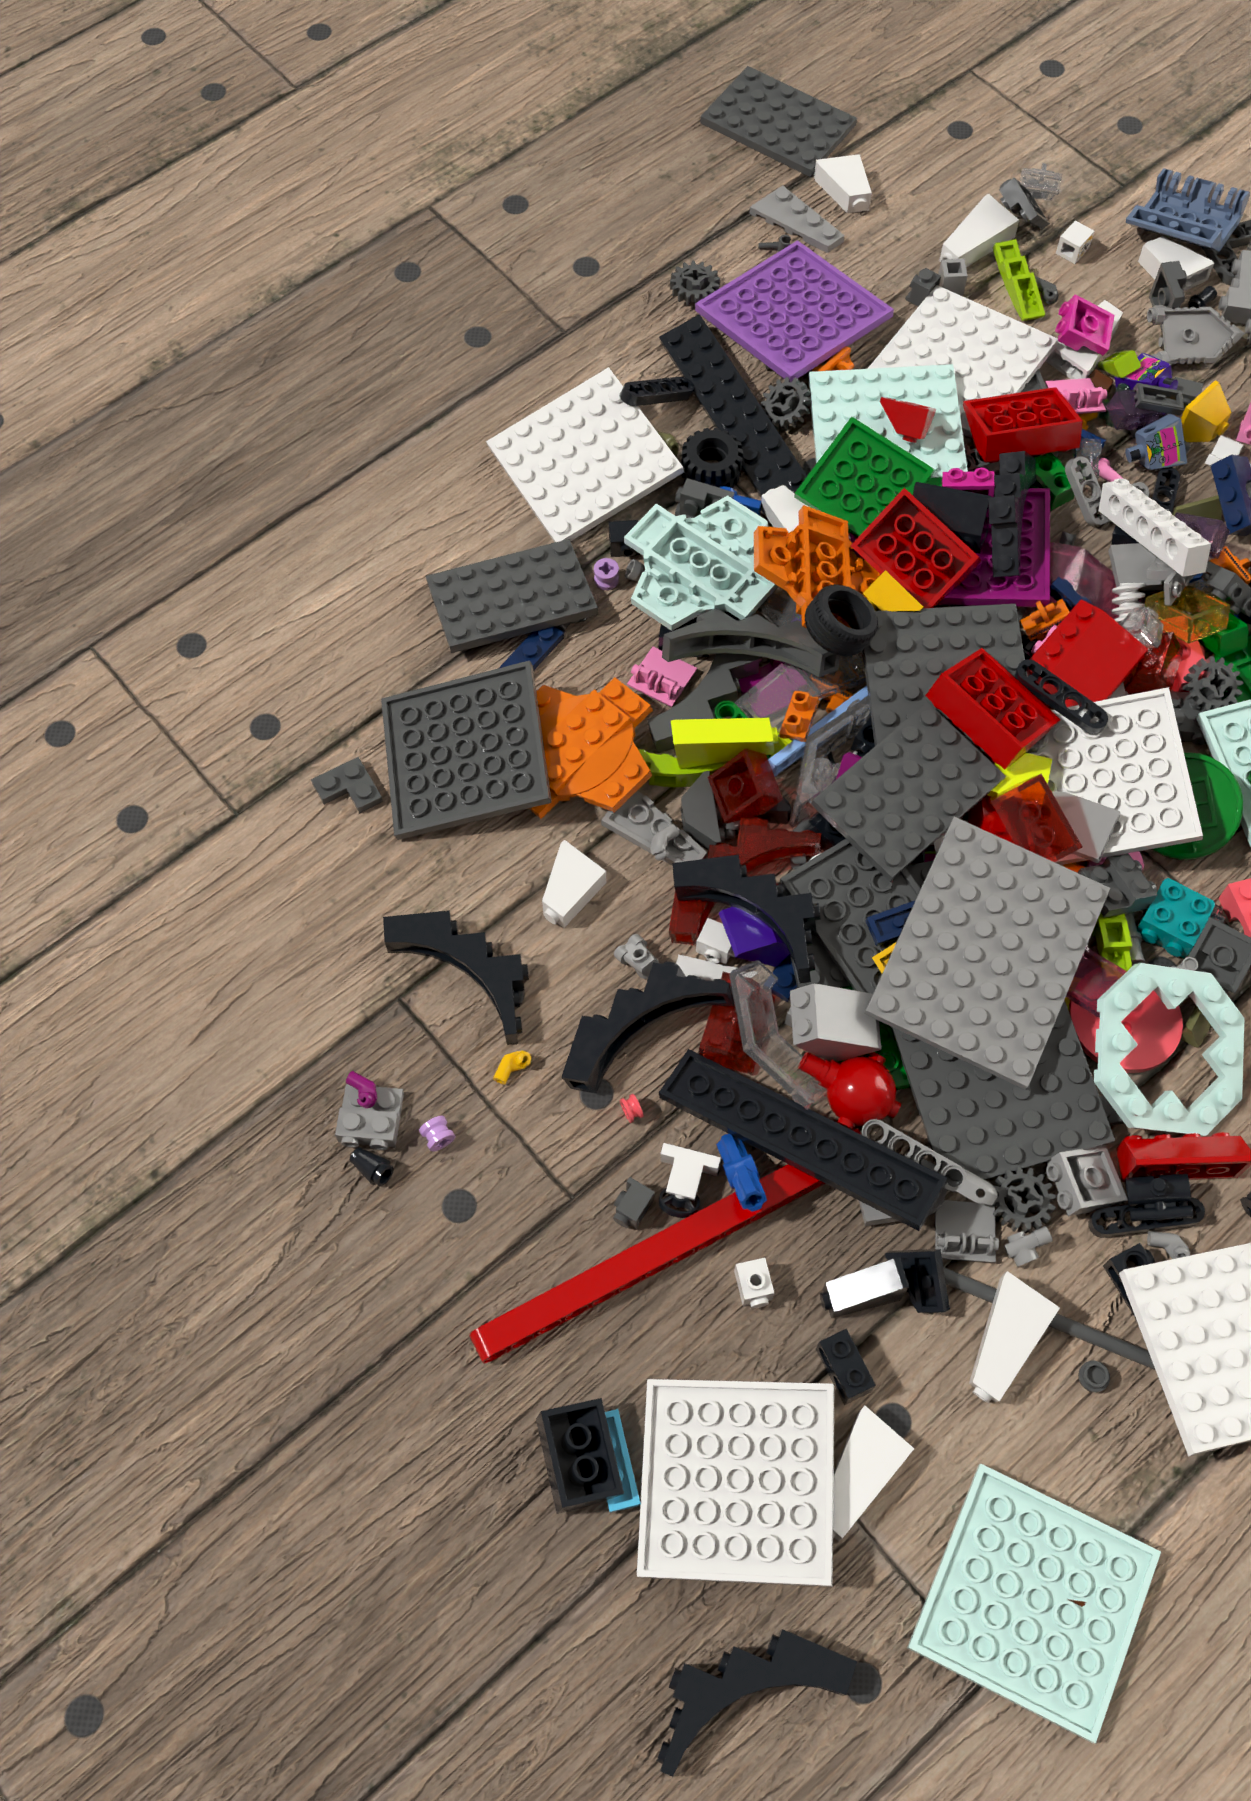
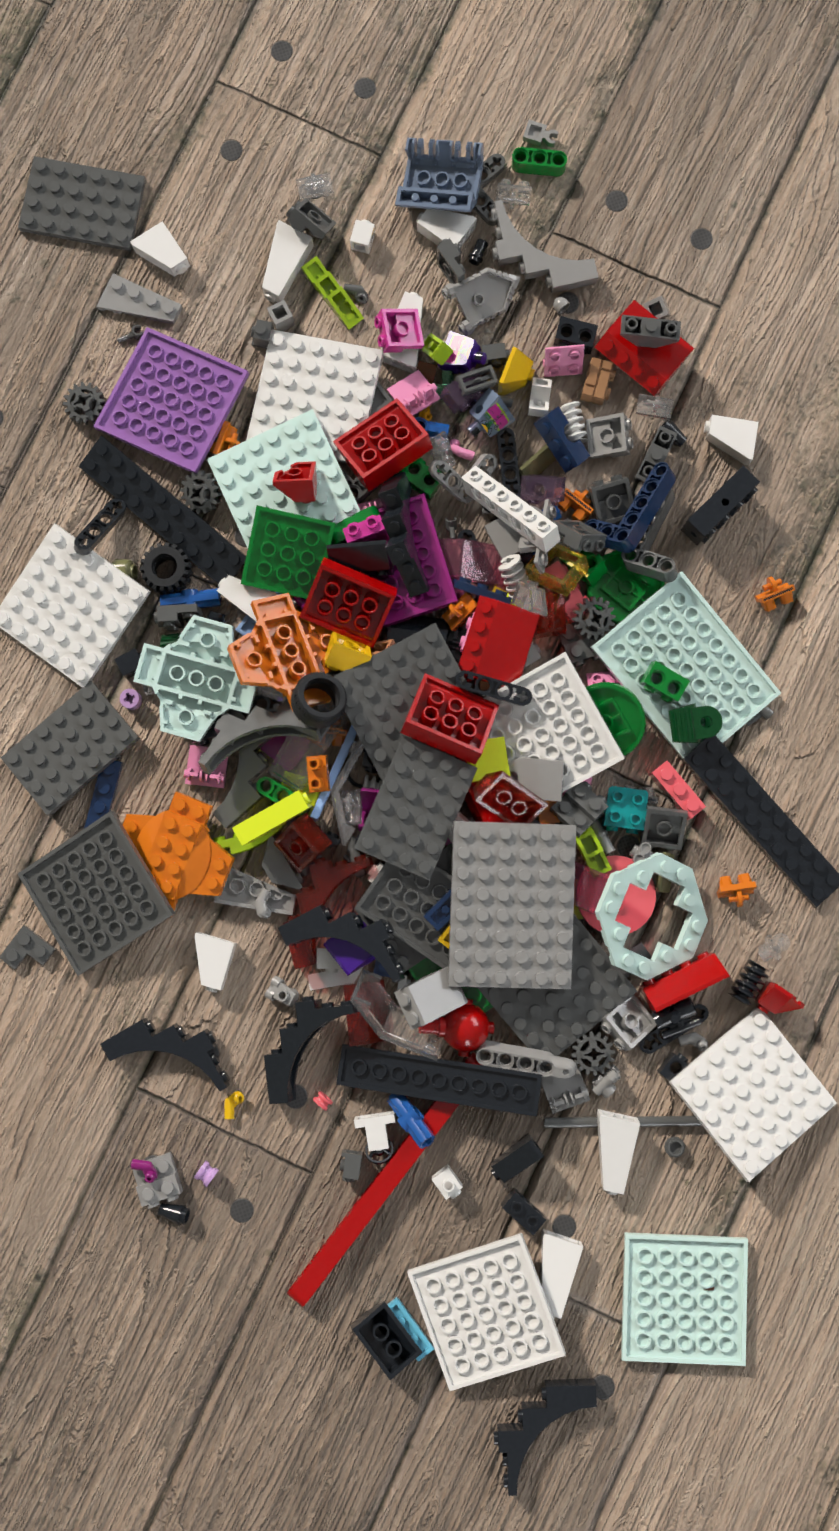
camera: 20 degrees left, 20 degrees up
(925, 1279) = (549, 1133): black wing -> none

